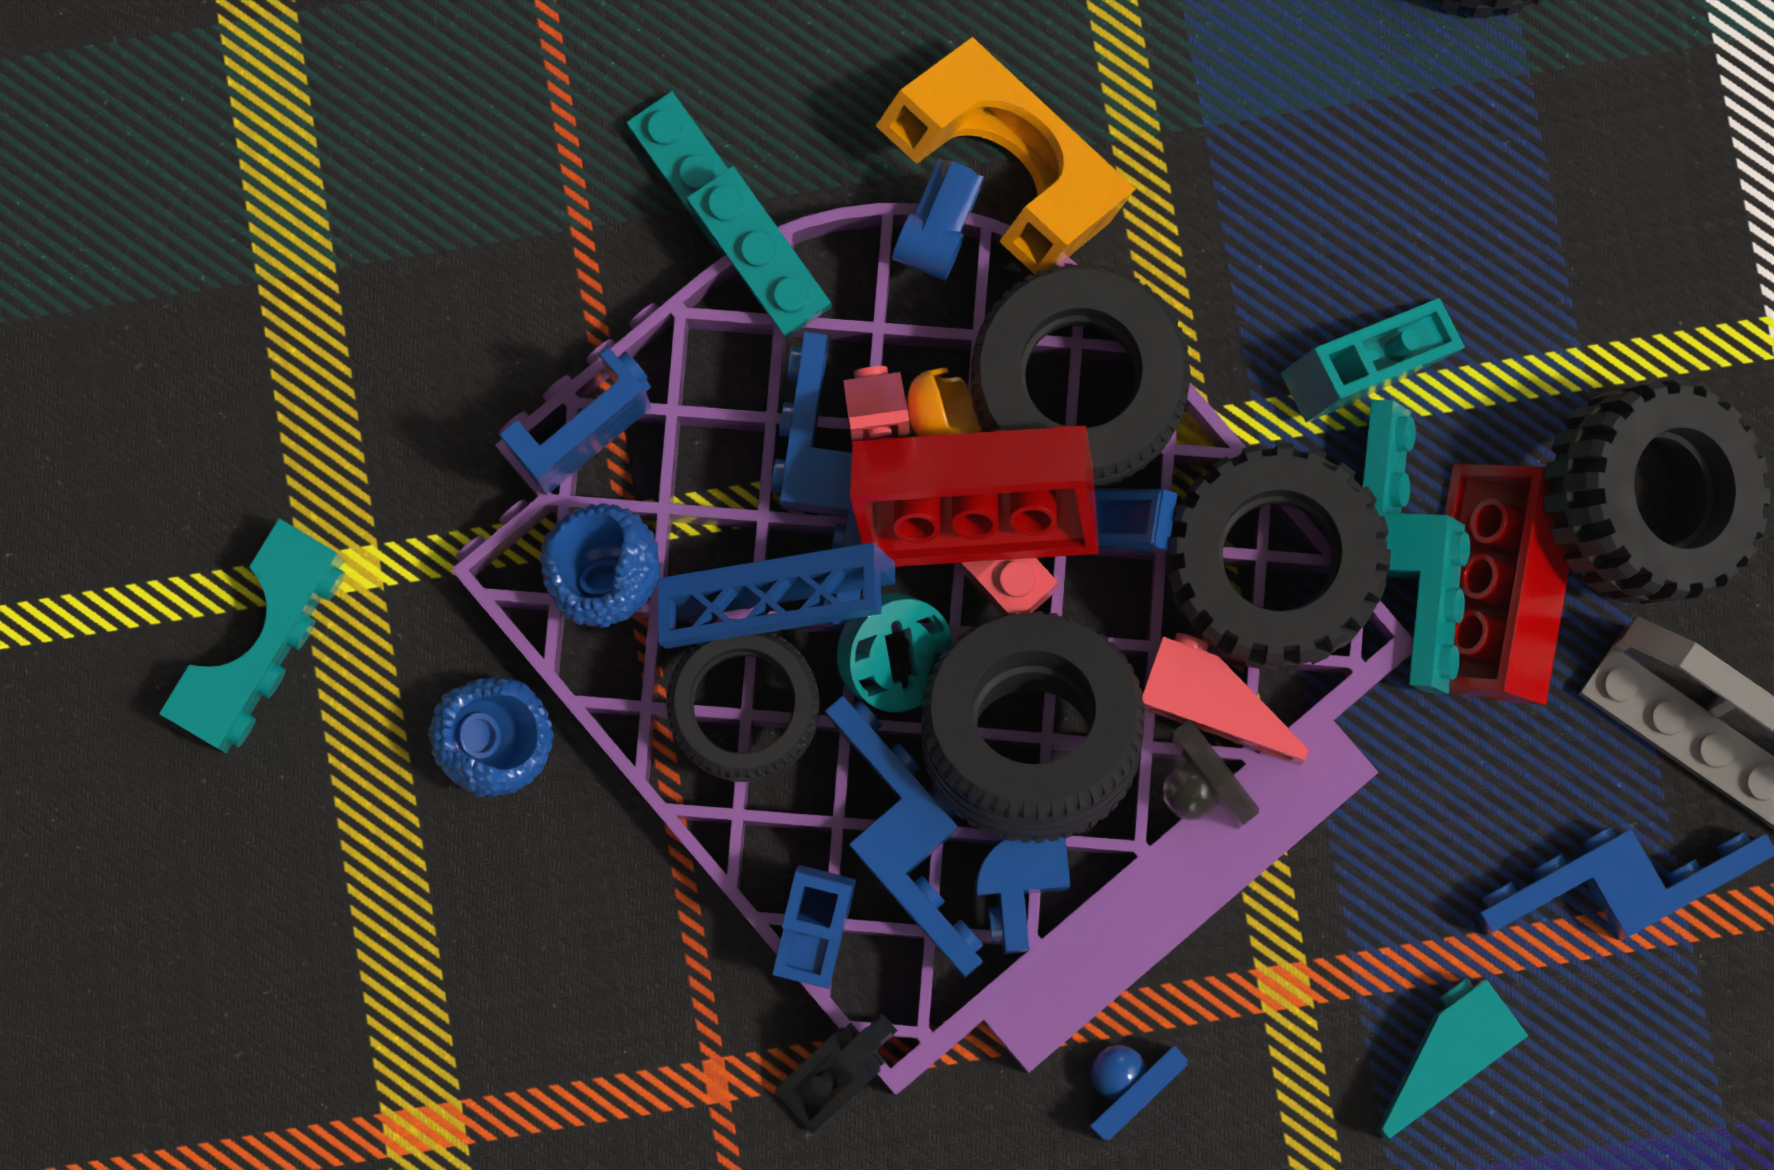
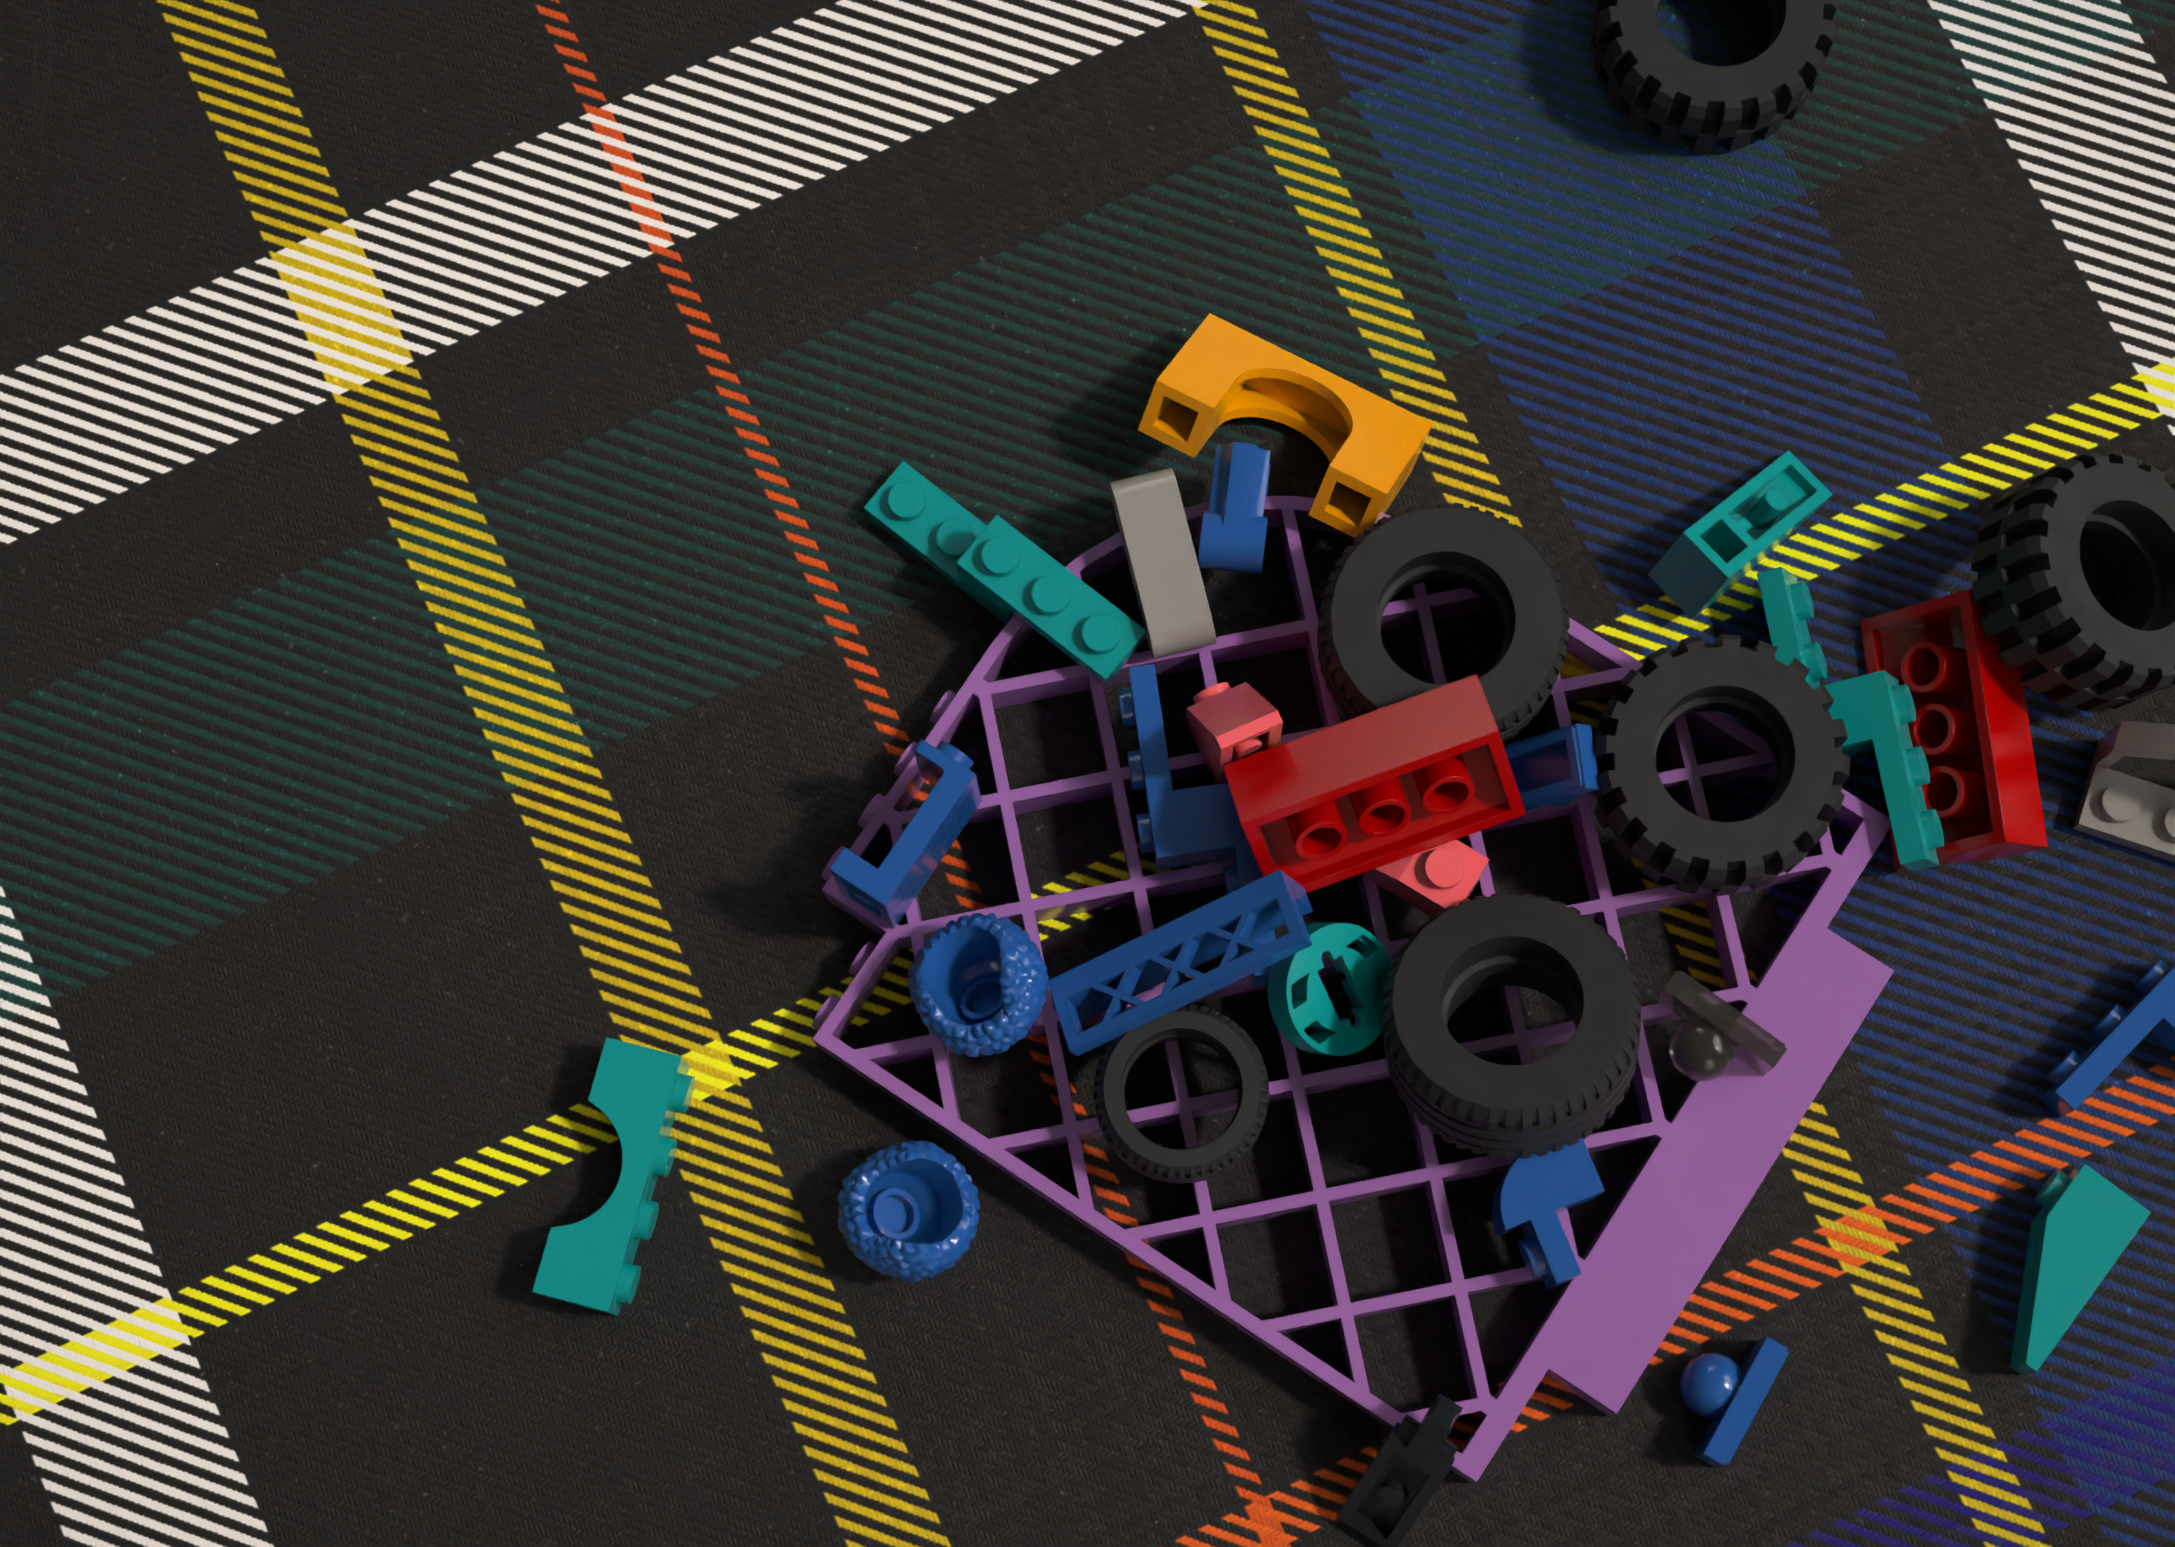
camera: 15 degrees left, 5 degrees down
(813, 926) = (1334, 1317): blue brick -> none
(862, 247) = (1162, 563): none -> light grey beam
(906, 834) = (1404, 1187): blue bracket -> none
(940, 405) = (1301, 702): light orange hair -> none
(1201, 688) = (1680, 931): coral slope -> none

